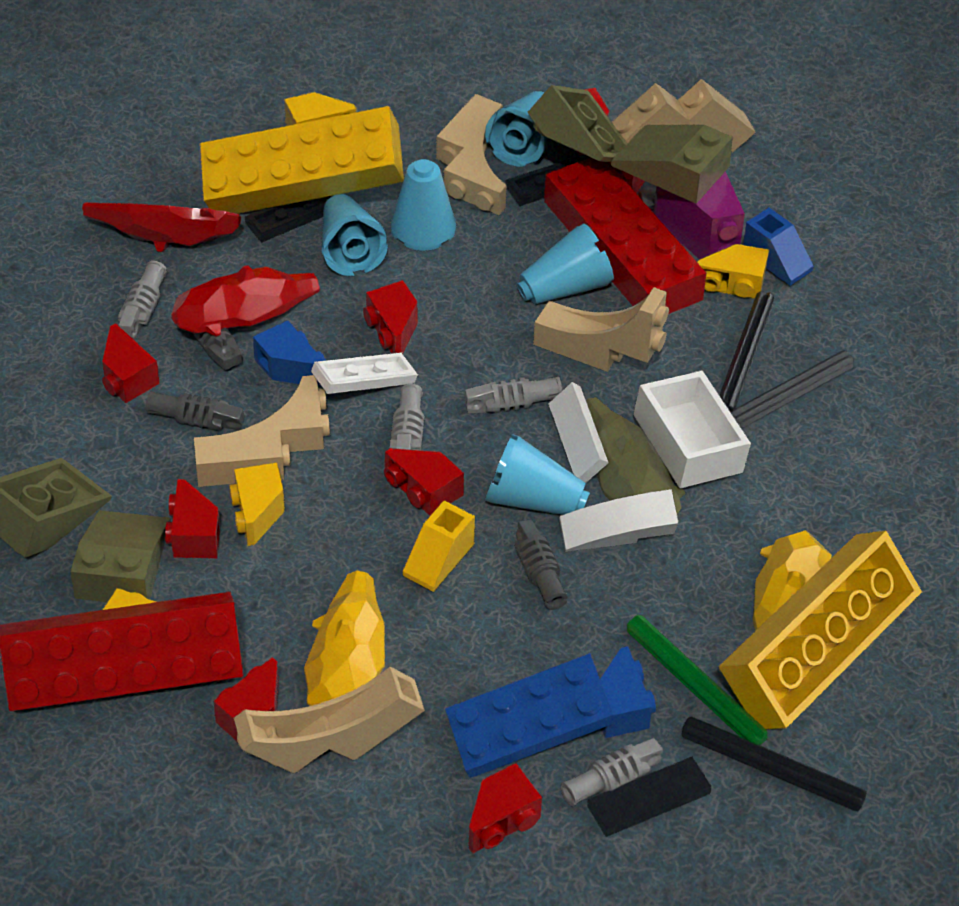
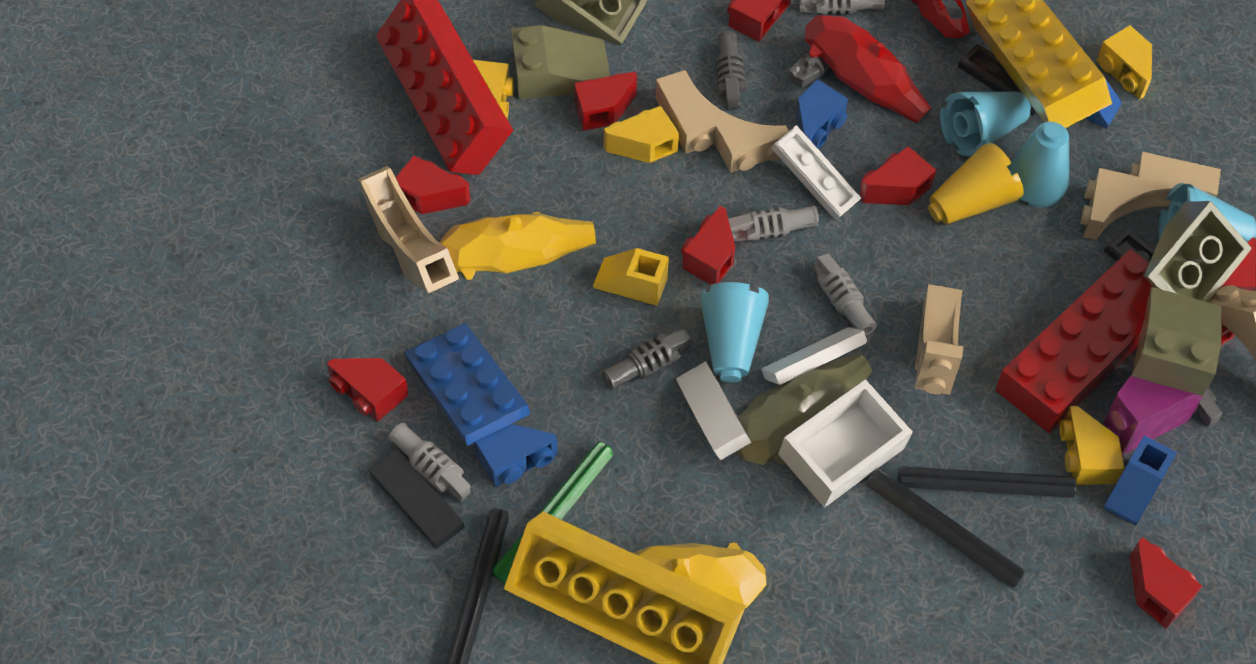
camera: 75 degrees right, 10 degrees up
(429, 258) = (976, 187): none -> yellow cone
(567, 268) = (1019, 299): medium azure cone -> none
(876, 268) = (1160, 584): none -> red slope

